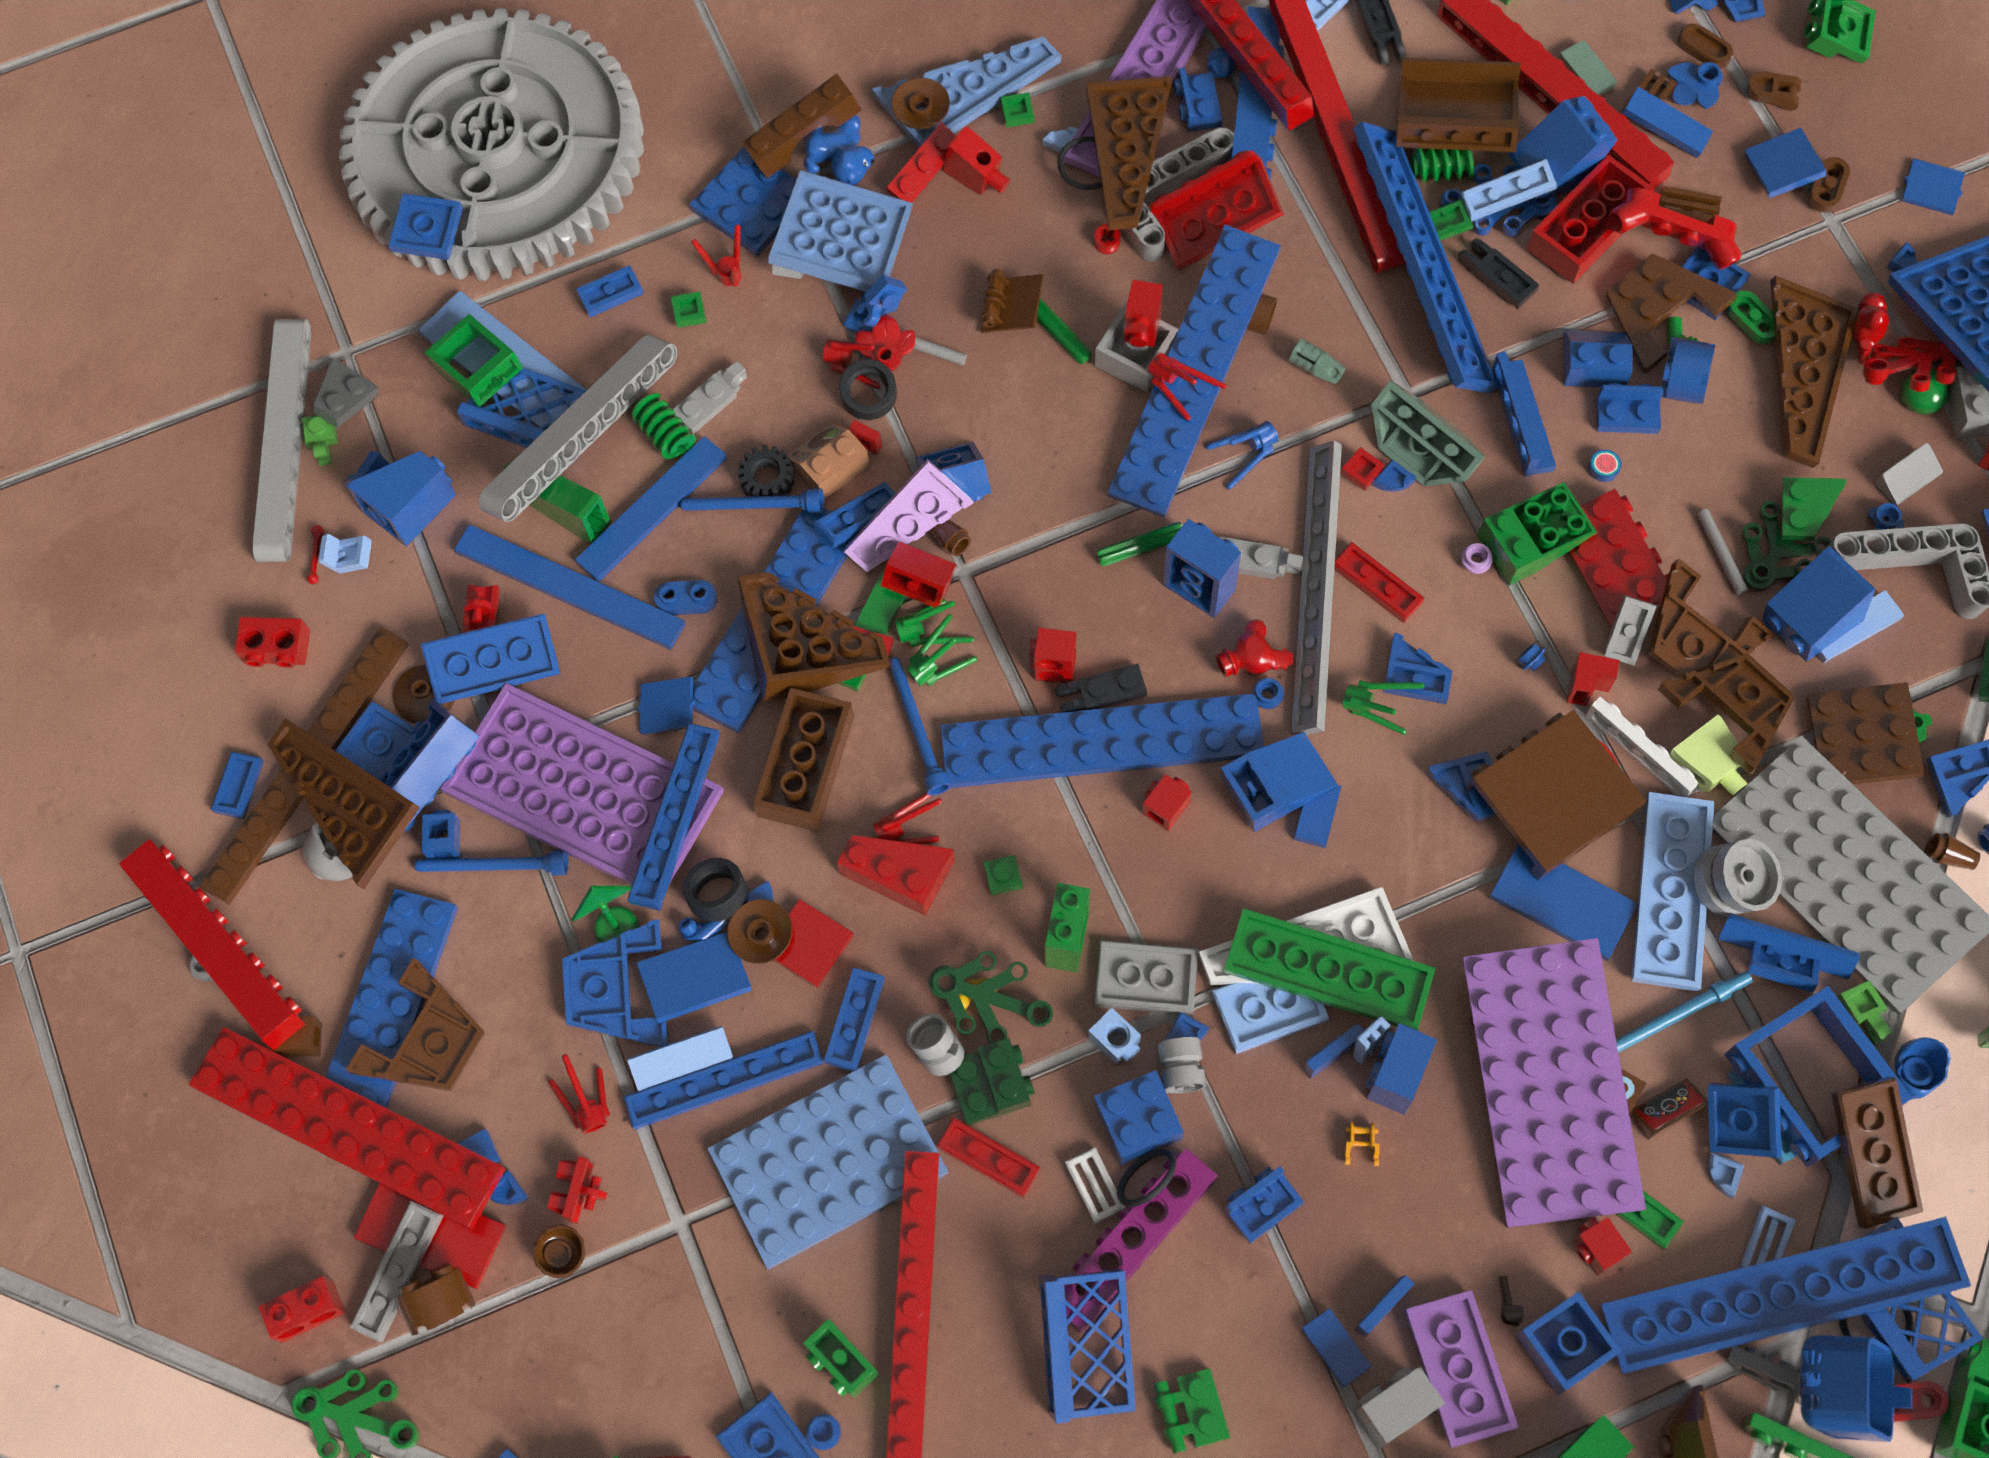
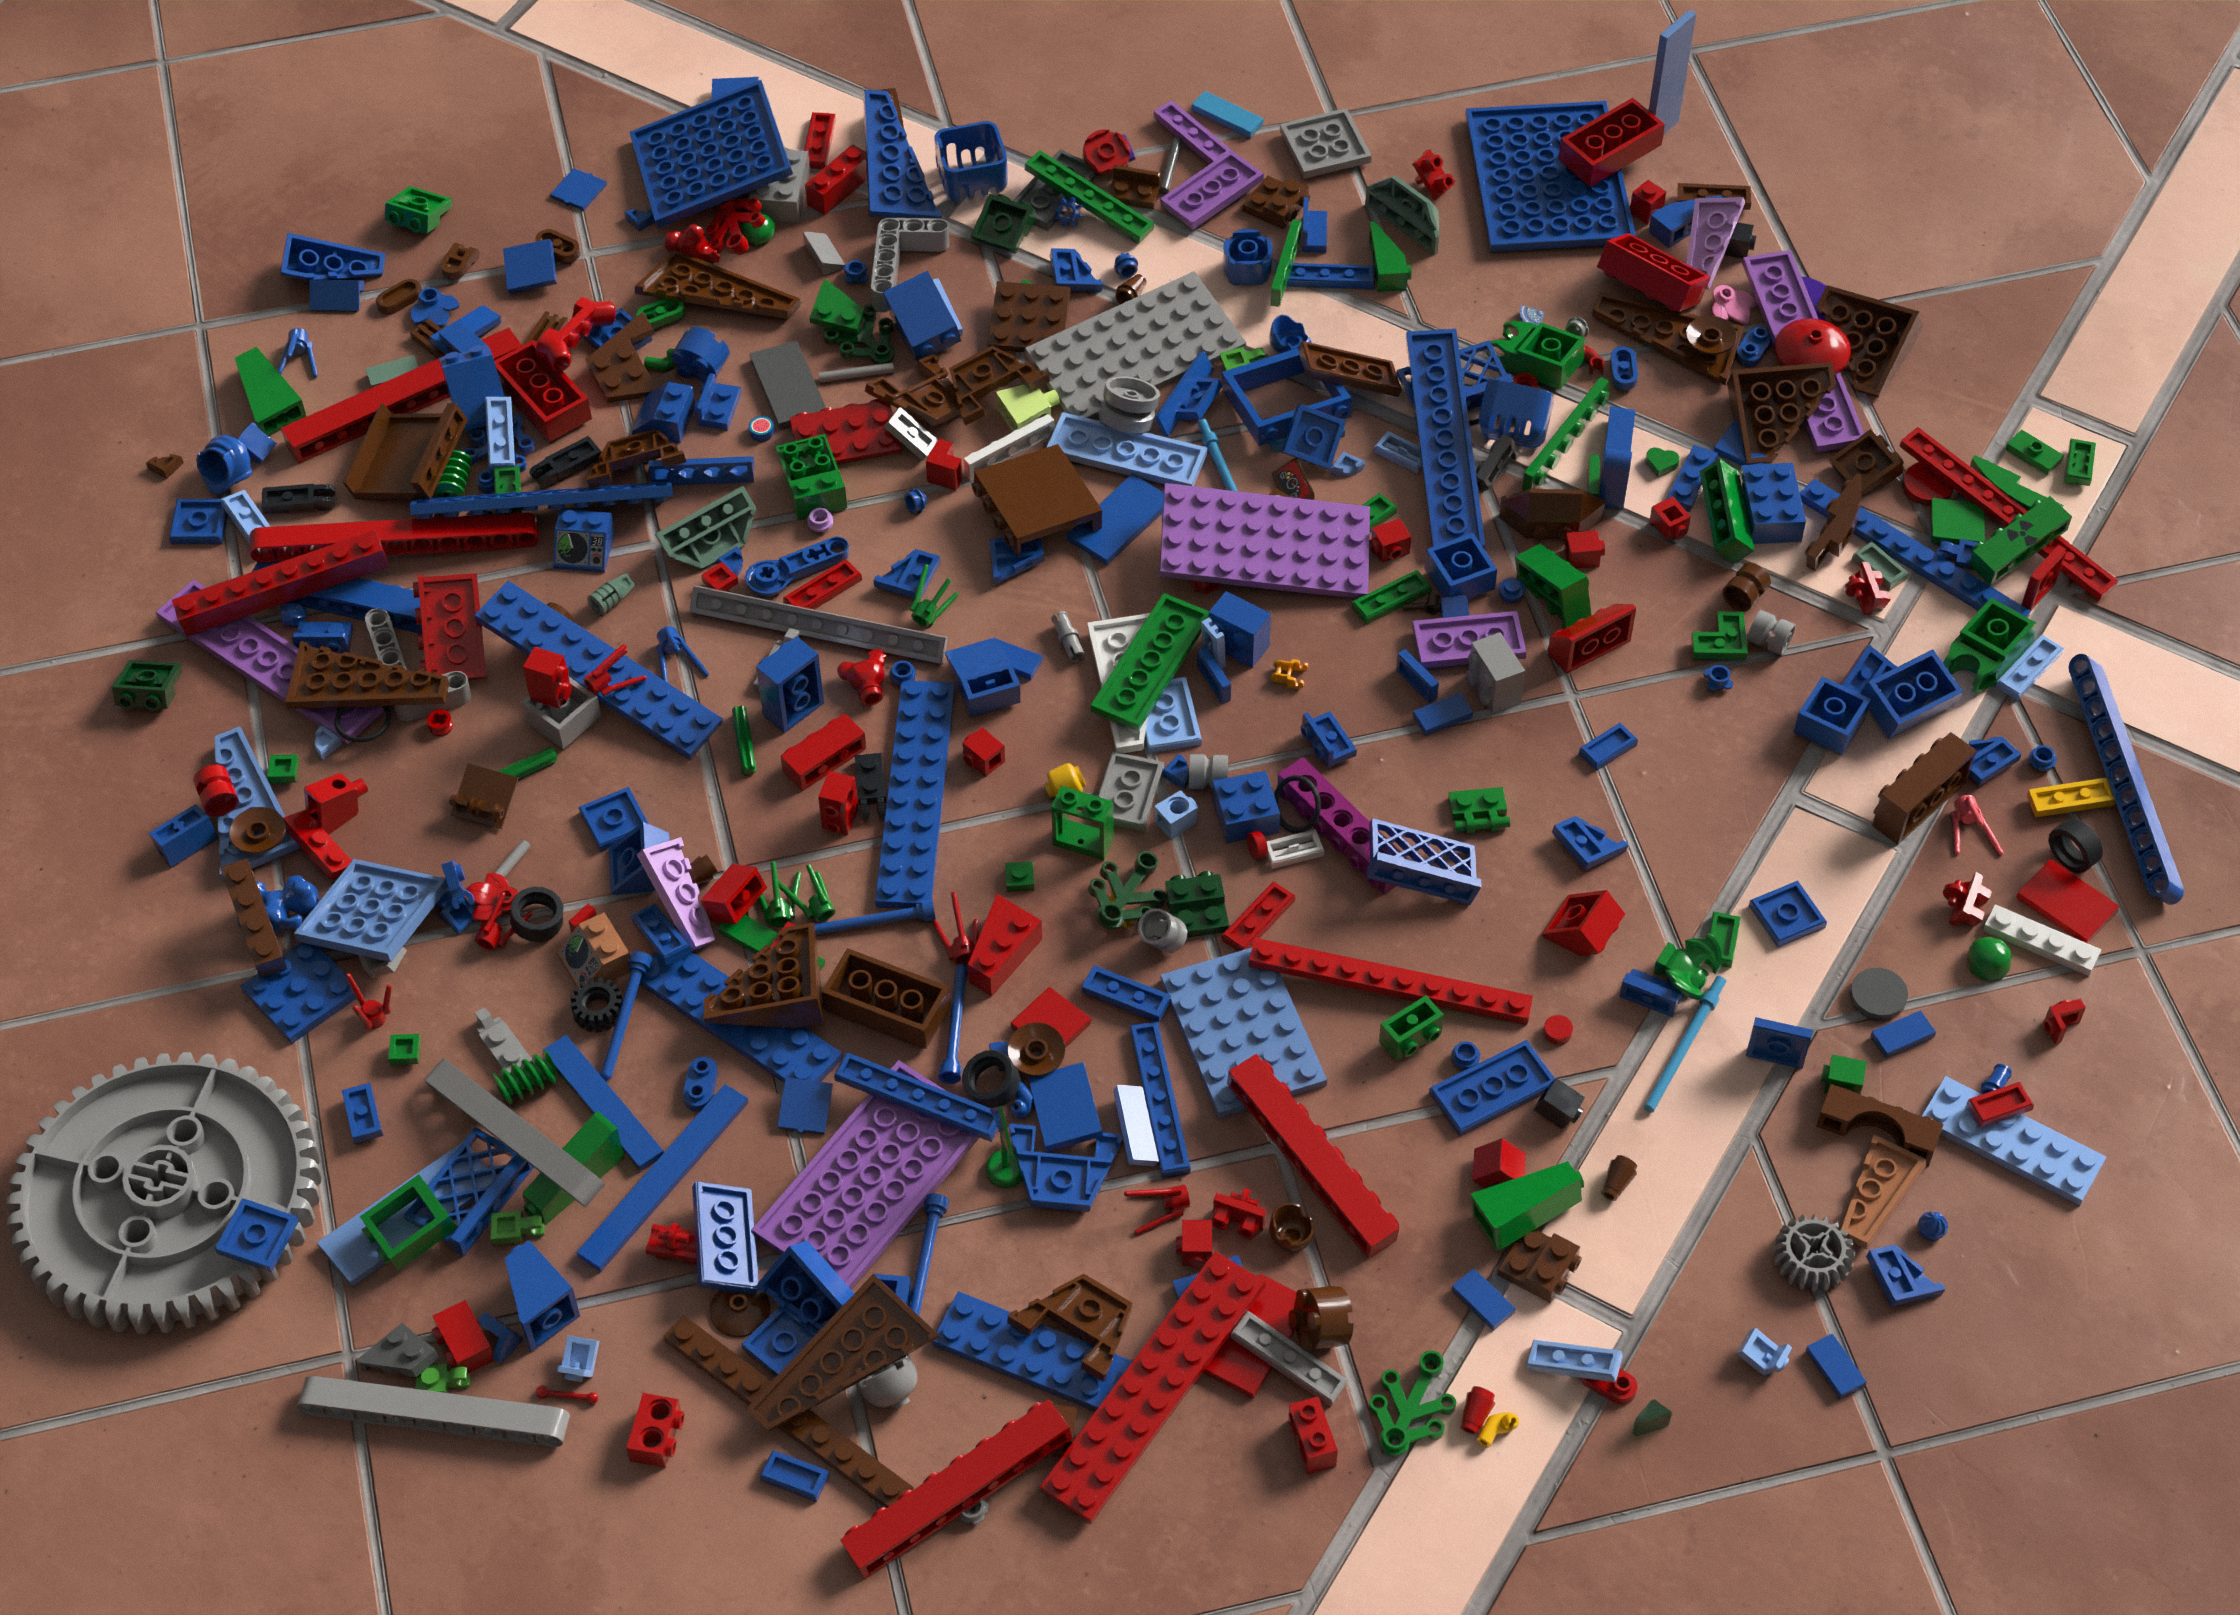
camera: 85 degrees left, 15 degrees down
(355, 442) = (462, 1337): none -> red brick
(491, 455) = (510, 1227): none -> bright green plate
(532, 1147) = (1195, 1242): none -> red brick
(650, 1263) = (1313, 1155): none -> red brick
(732, 845) = (951, 1070): none -> blue piece
(915, 43) = (183, 835): none -> blue hinge
(959, 53) = (215, 790): none -> red wheel
(1011, 438) = (612, 817): none -> blue tile
(1087, 1139) = (1257, 845): none -> red tile
(1135, 628) = (823, 752): none -> red brick
(1138, 901) = (1066, 776): none -> yellow head
(1360, 869) = (1068, 636): none -> light grey pin
(1383, 315) = (583, 540): none -> slope
(1398, 542) = (794, 566): none -> blue beam
(1506, 1344) = (1454, 606): none -> blue slope
(1515, 1259) = (1391, 597): none -> green tile
(1522, 331) = (634, 450): none -> reddish brown wing
(1559, 1418) = (1511, 590): none -> blue plate
(1635, 120) = (459, 337): none -> blue tile
(1683, 480) = (786, 382): none -> dark grey tile

